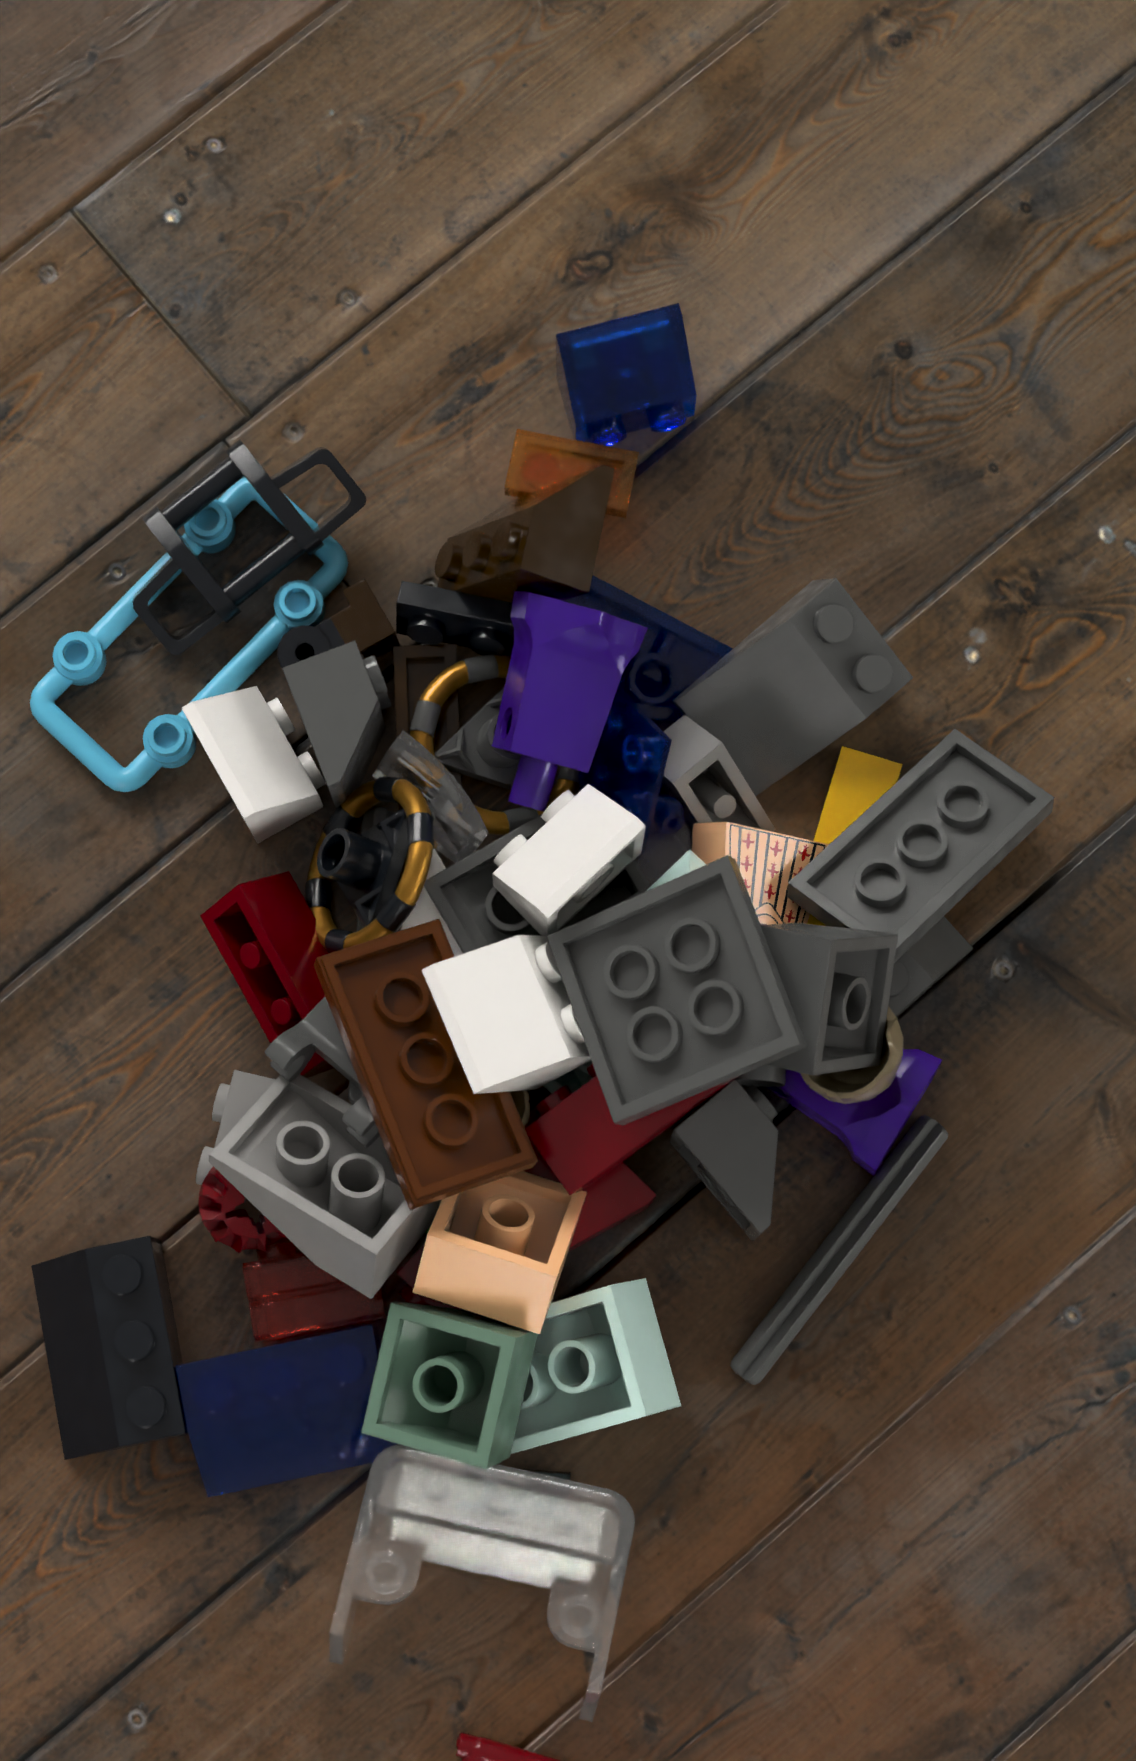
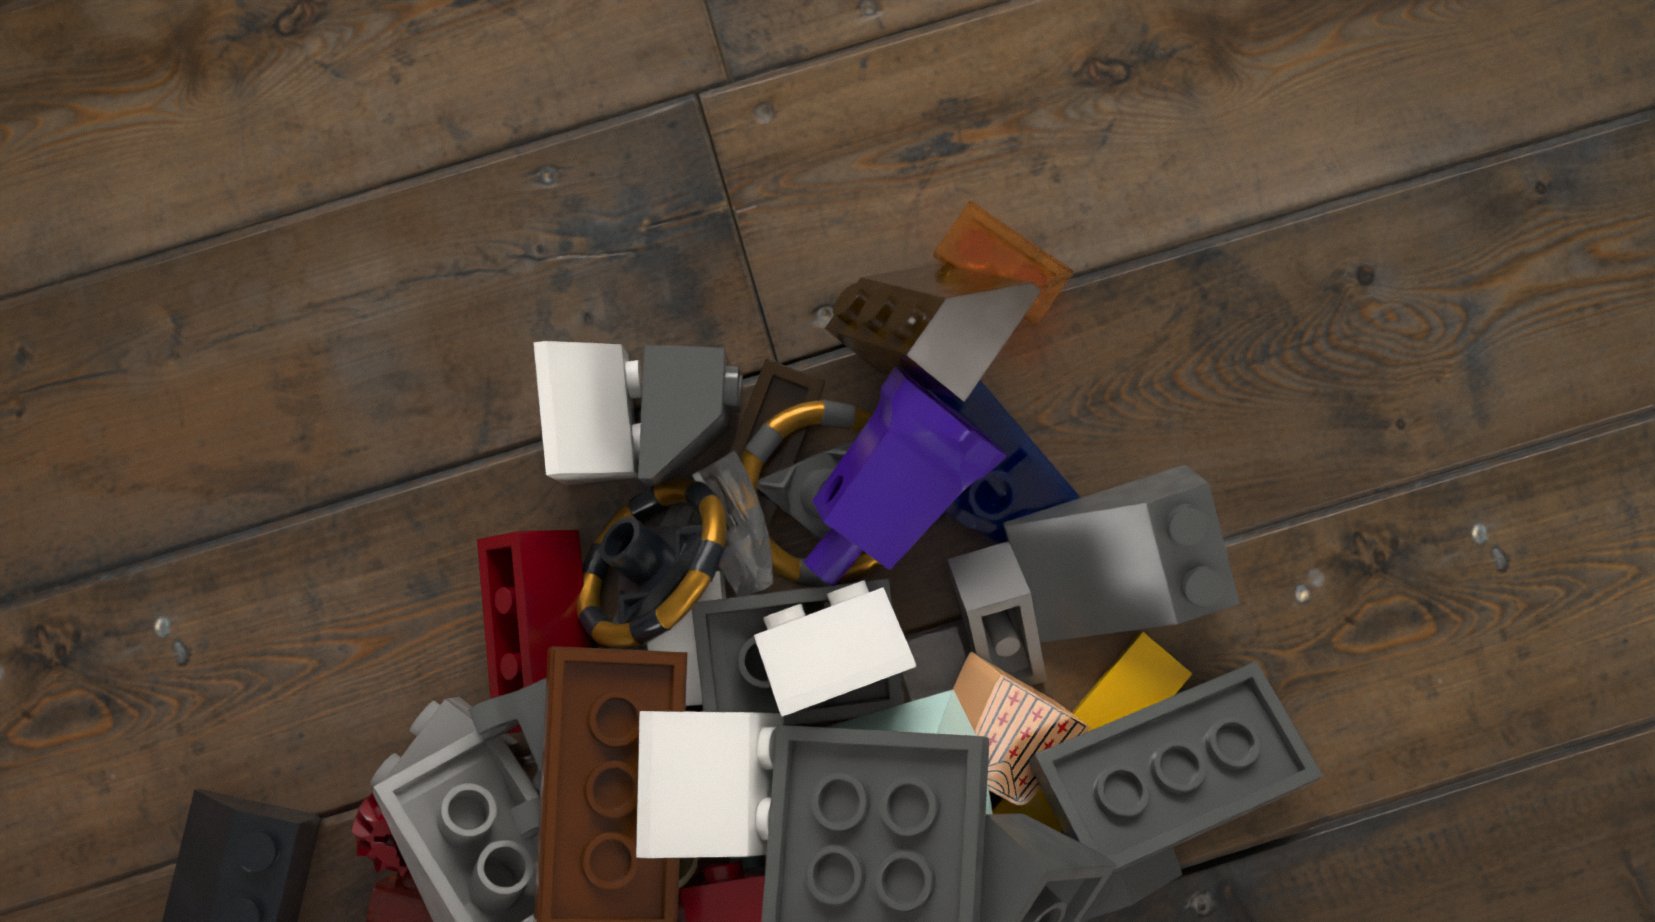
camera: 25 degrees right, 5 degrees up
(170, 738) = (647, 171): medium azure bar -> none
(226, 599) = (632, 246): black bar -> none
(360, 622) = (740, 329): dark brown leg -> none
(454, 617) = (820, 349): black plate -> none
(626, 376) = (1094, 195): clear blue slope -> none
(632, 767) = (933, 584): clear blue hinge -> none

